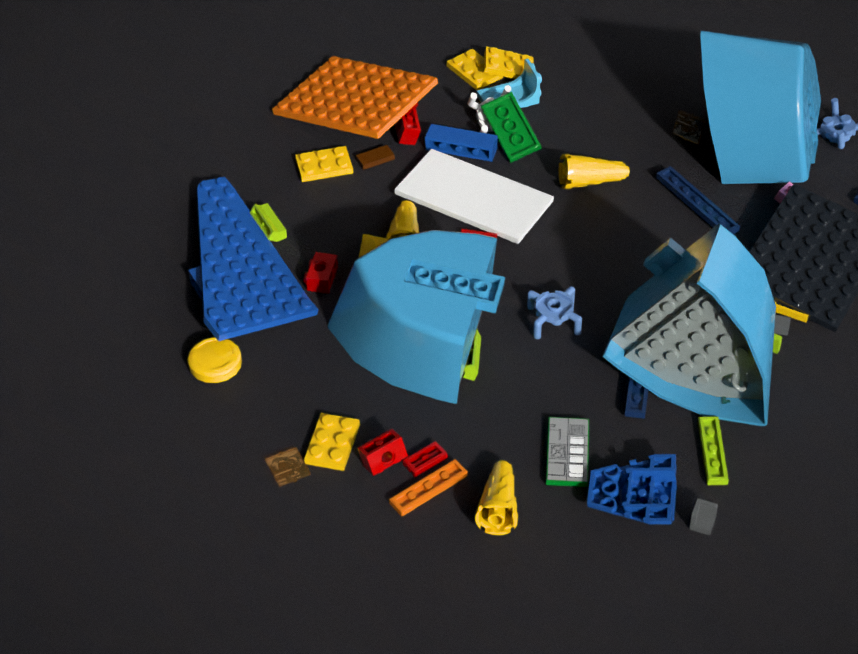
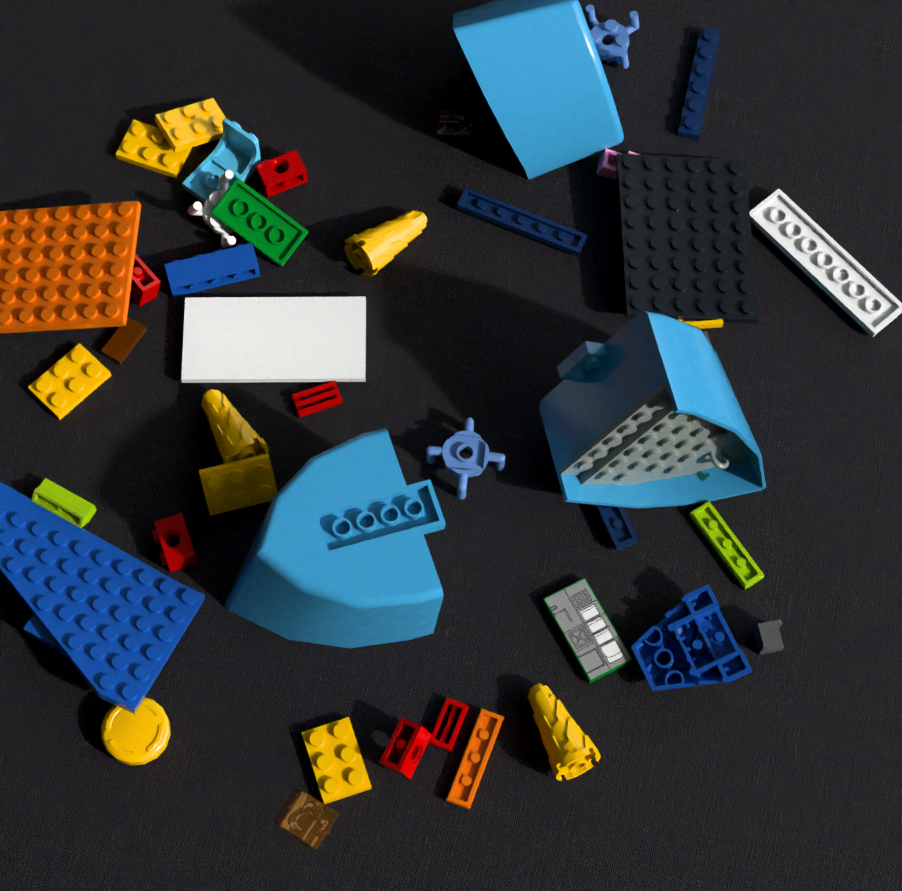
camera: 35 degrees left, 20 degrees up
(547, 111) = (276, 182): none -> red brick

